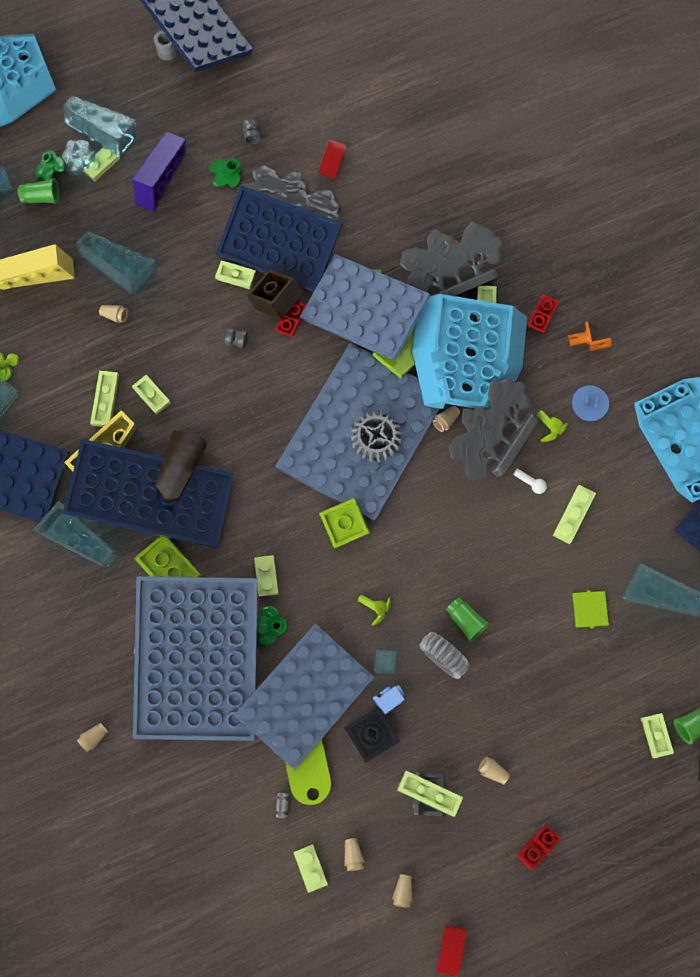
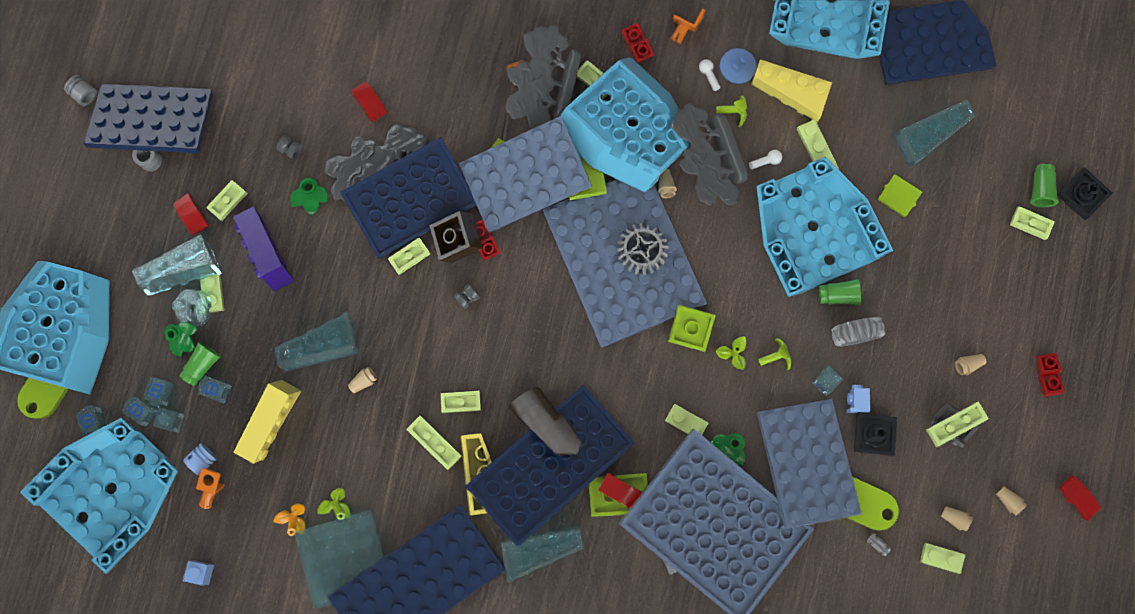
camera: 50 degrees left, 5 degrees up
(28, 216) = (213, 389): none -> clear light blue brick
(146, 105) = (190, 214): none -> red slope
(169, 560) = (619, 490): none -> red slope
(177, 120) = (226, 200): none -> yellowish green plate
(347, 565) = (738, 346): none -> lime plant
(525, 583) = (844, 223): none -> medium azure wedge
(568, 380) = (706, 67): none -> white bar
(607, 458) = (793, 88): none -> light yellow wedge

